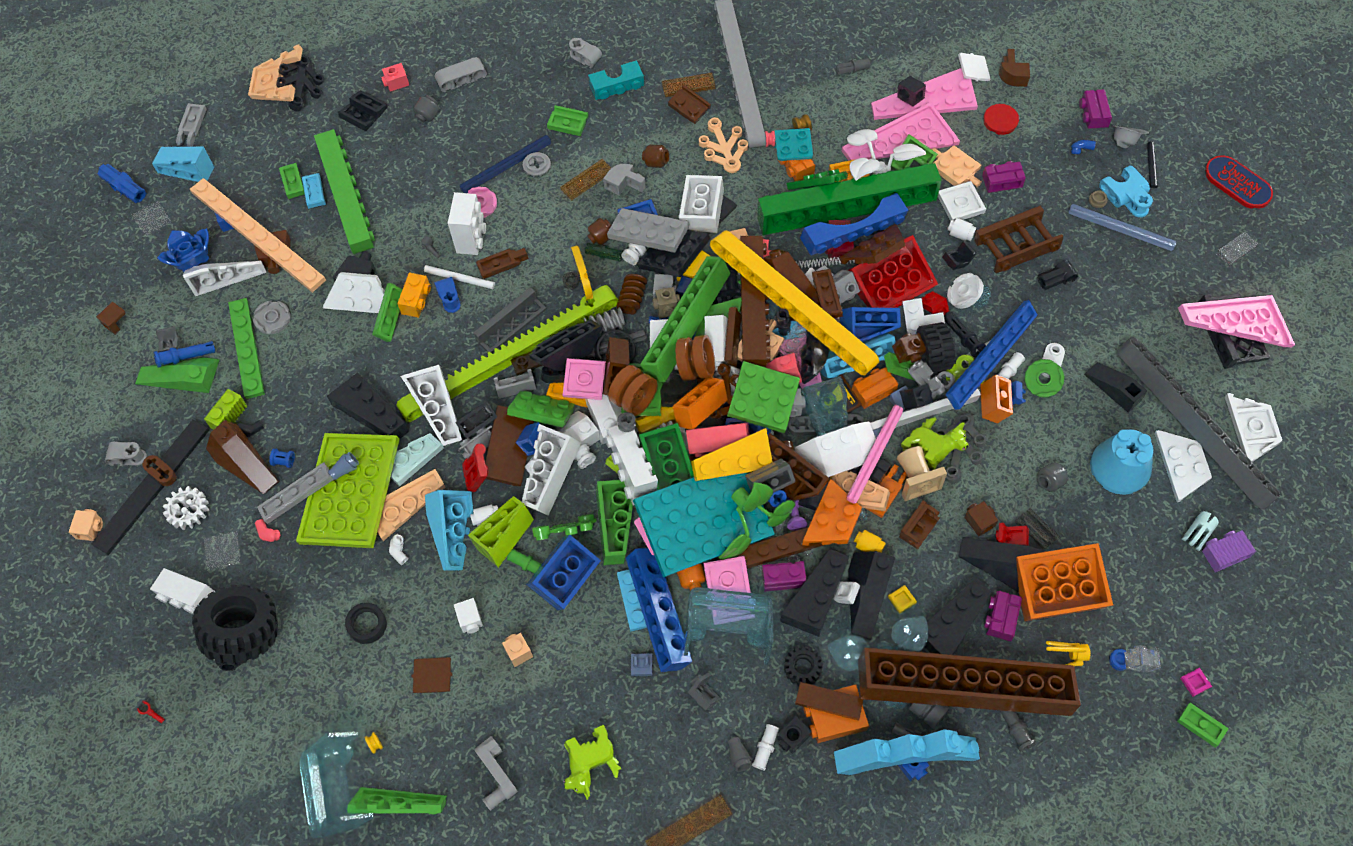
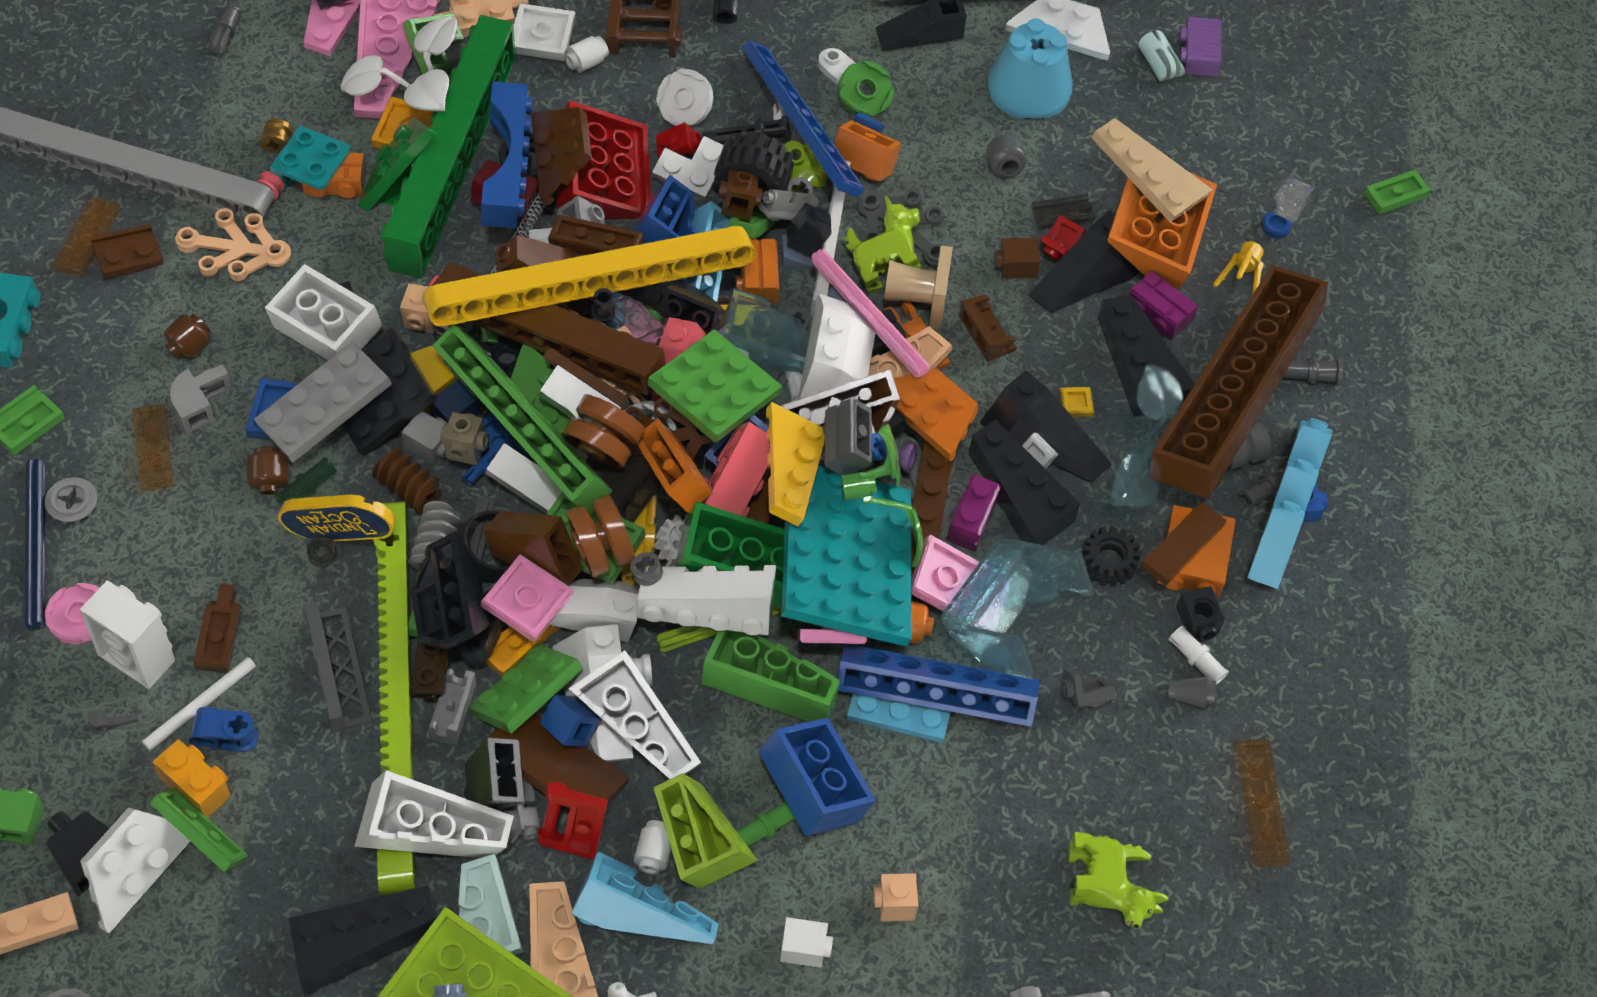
camera: 70 degrees left, 5 degrees down
(584, 521) = (743, 752): bright green plant -> none
(633, 253) = (338, 447): white wheel -> none
(641, 664) = (1002, 750): sand blue tile -> none
(869, 542) = (984, 391): yellow brick -> none
(959, 257) = (626, 76): black bracket -> none
(1010, 368) = (824, 114): white pin -> none
(1086, 559) = (1155, 174): none -> tan wing
(1196, 682) = (1341, 170): dark pink tile -> none

